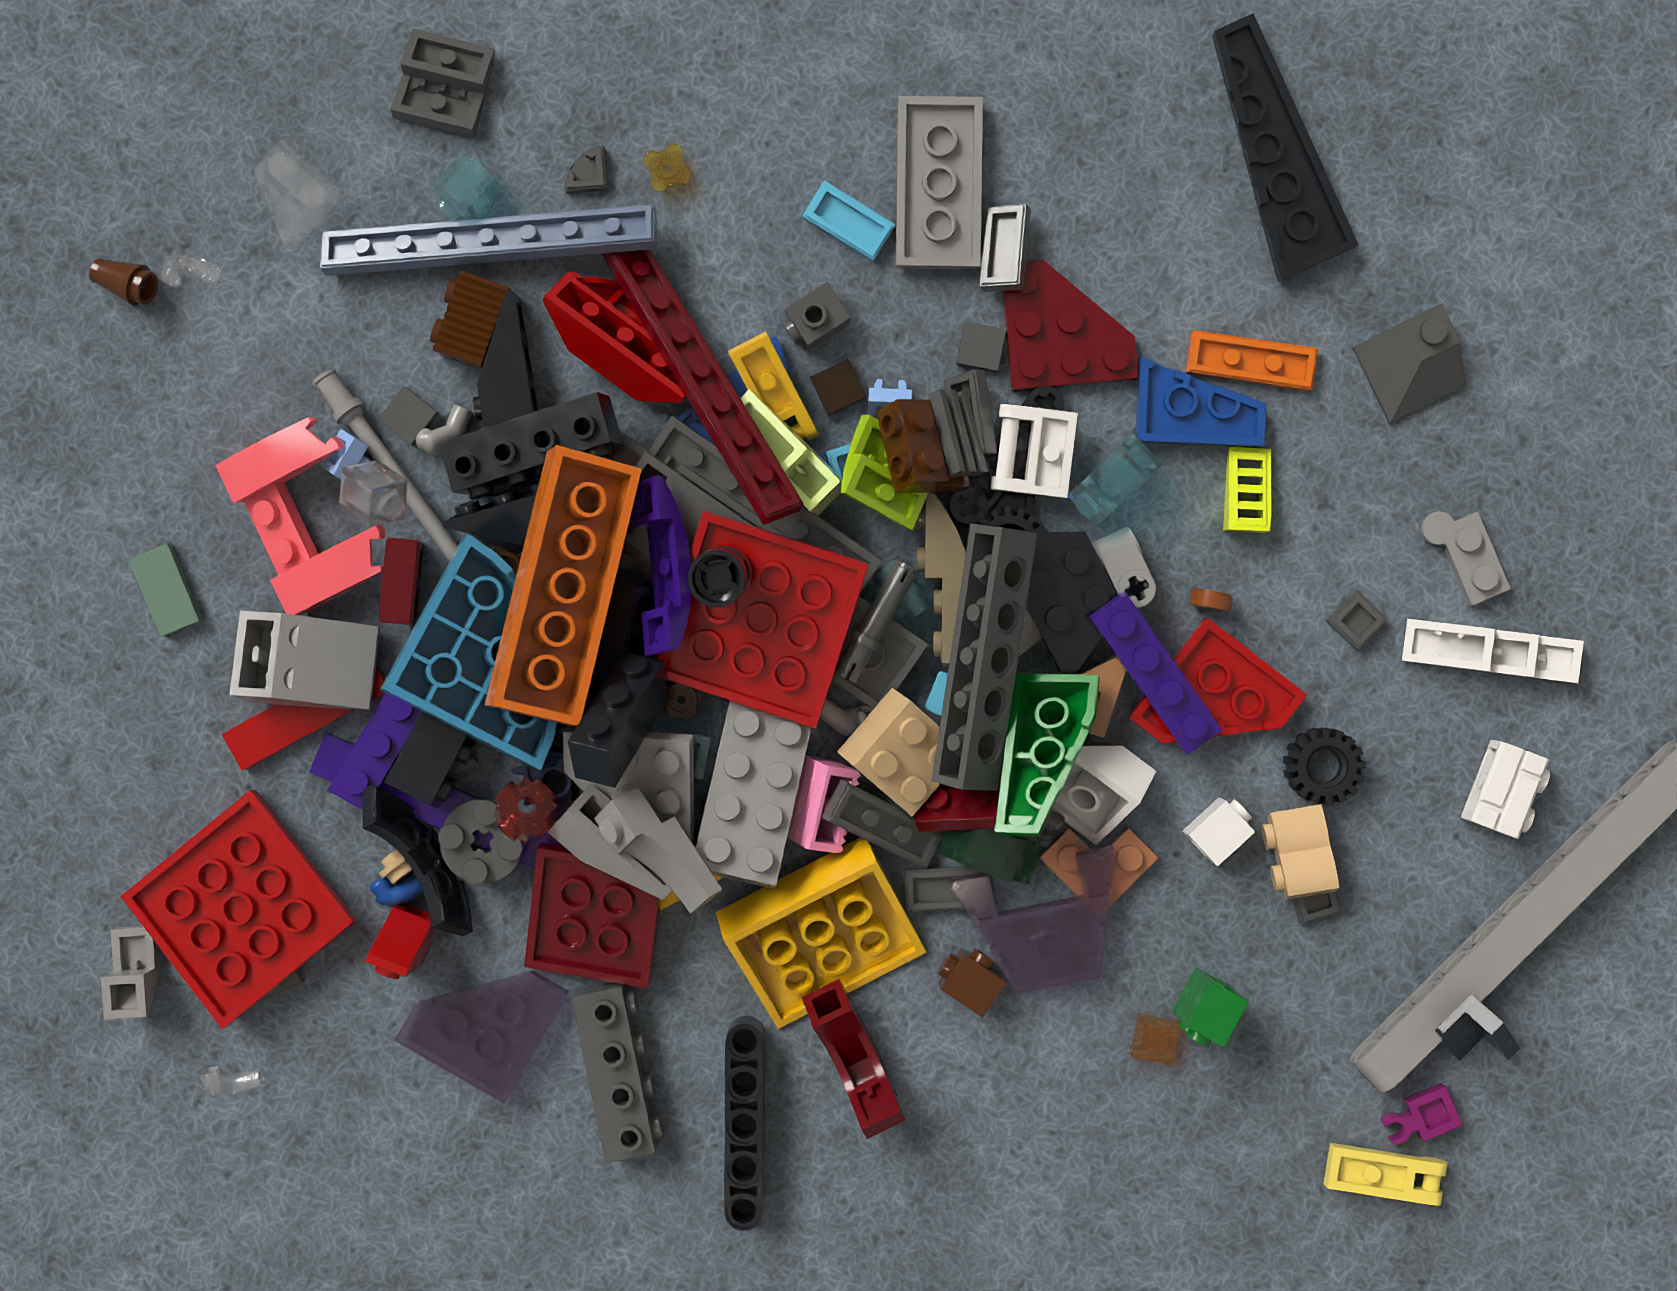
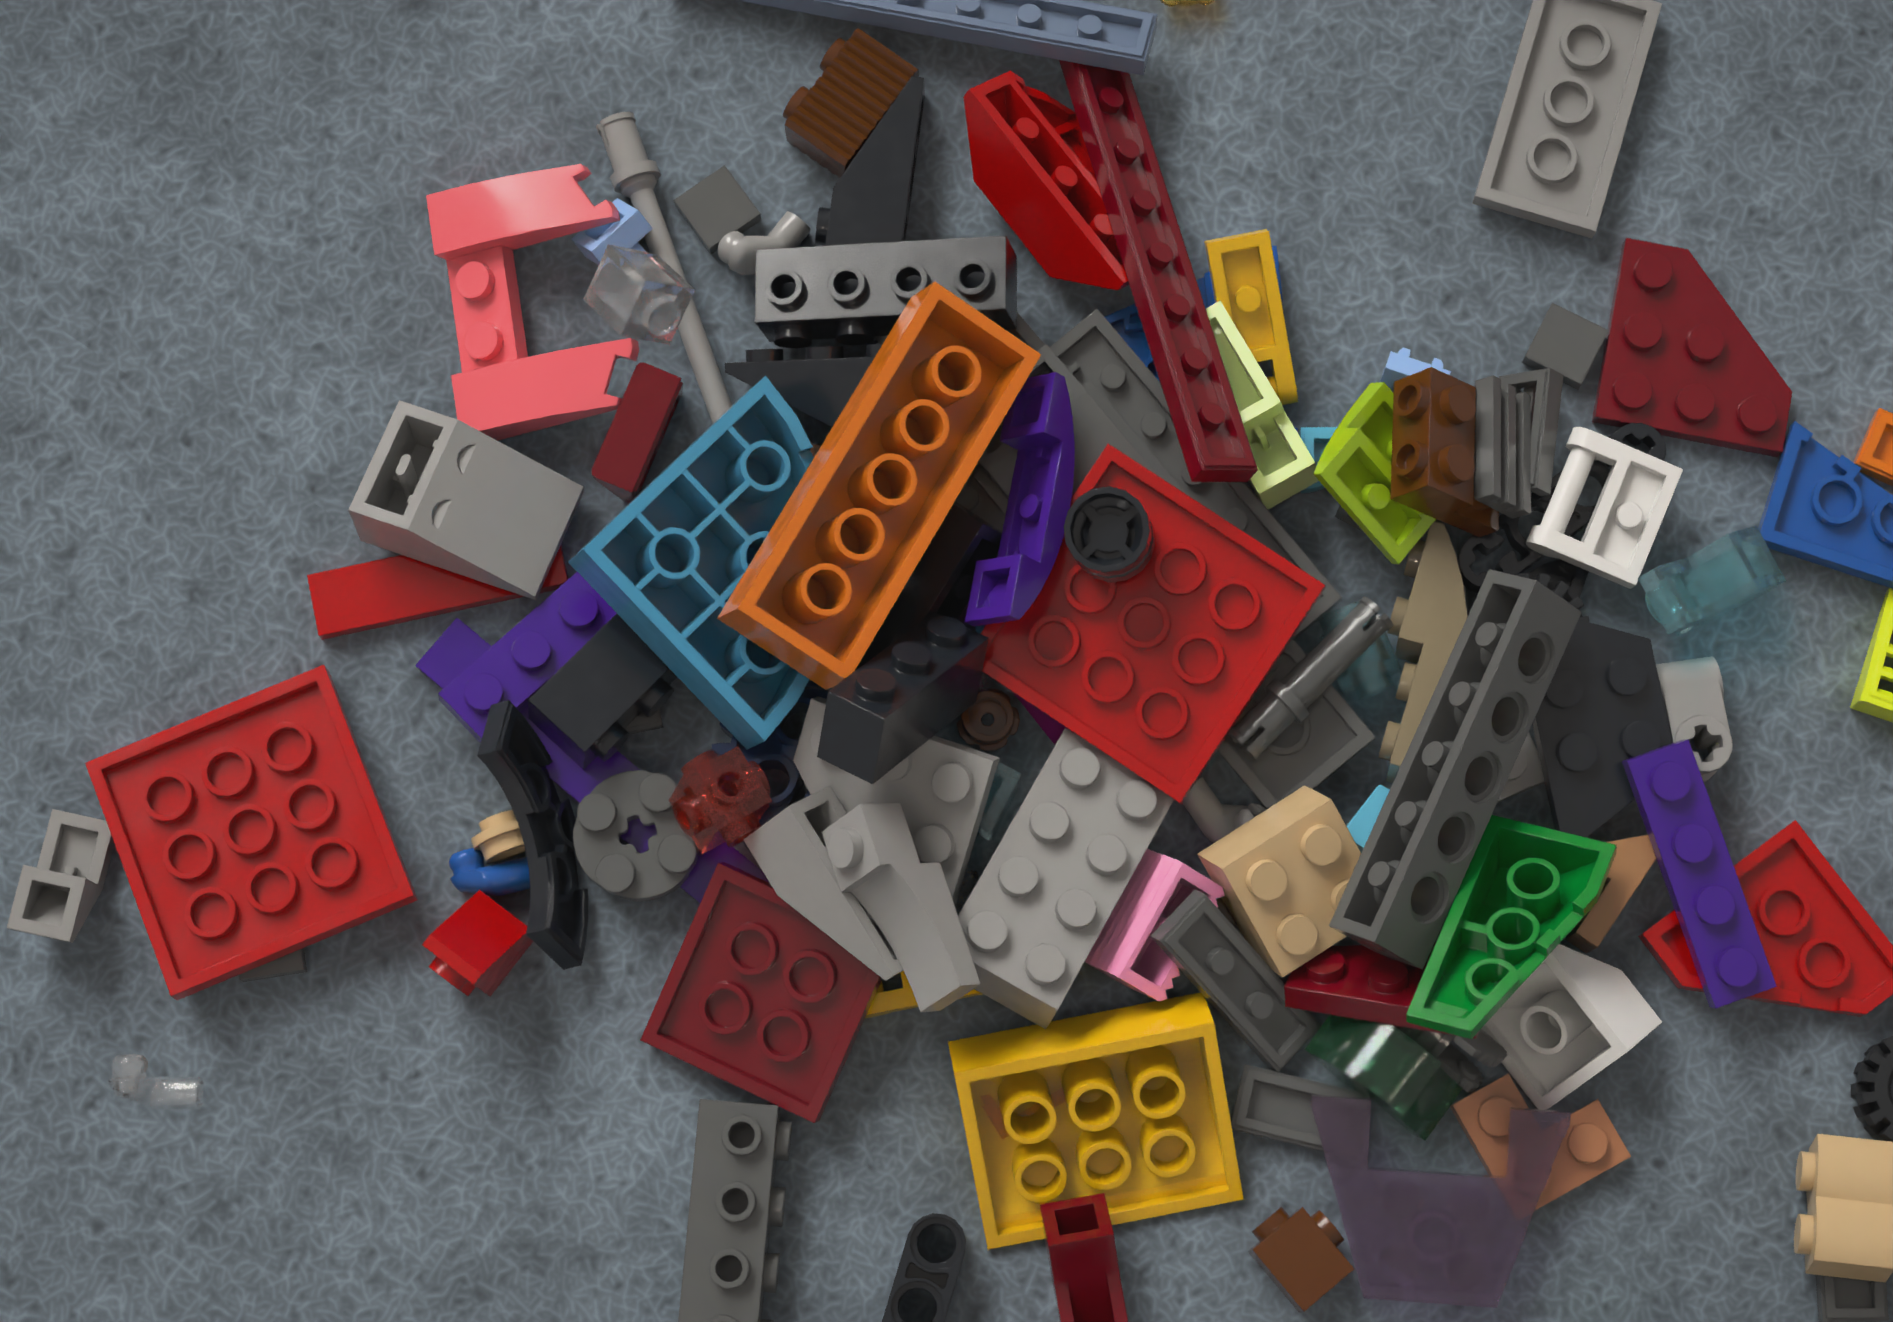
camera: 15 degrees right, 10 degrees down
(166, 590) = (294, 352): sand green tile -> none
(485, 1029) = (553, 1118): clear purple plate -> none
(816, 317) = (1341, 236): dark grey brick -> none
(837, 387) = (1342, 344): dark brown tile -> none
(848, 221) = (1423, 121): medium azure tile -> none
(1005, 248) = (1638, 217): tile -> none
(1211, 600) = (1807, 798): dark orange tile -> none
(1220, 830) = (1734, 1140): white brick -> none

